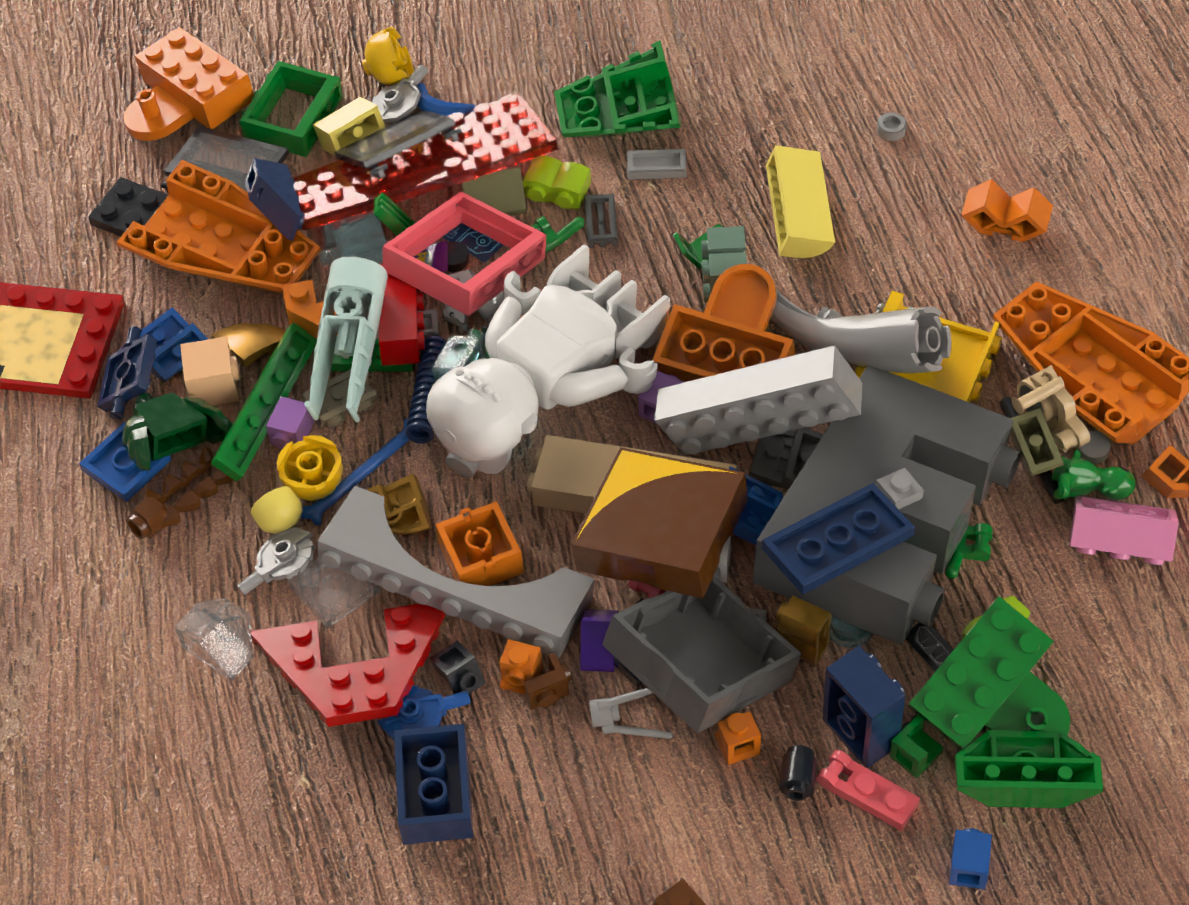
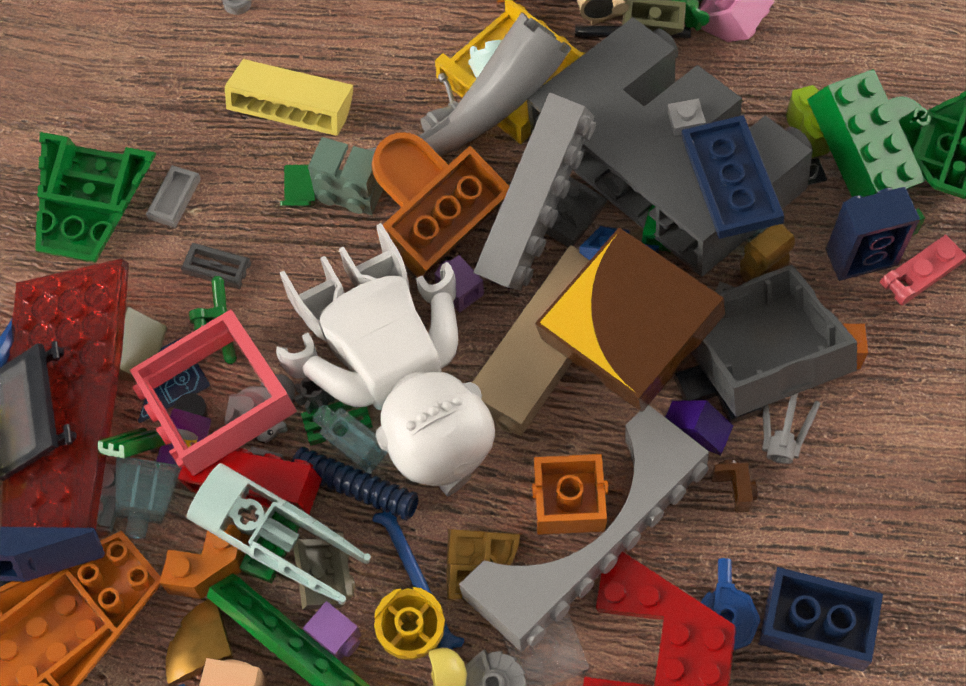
camera: 70 degrees left, 10 degrees up
(458, 668) = (688, 559): black bracket -> none
(519, 664) = (712, 502): orange brick -> none
(557, 182) = (155, 284): lime brick -> none
(798, 773) = (896, 314): black brick -> none

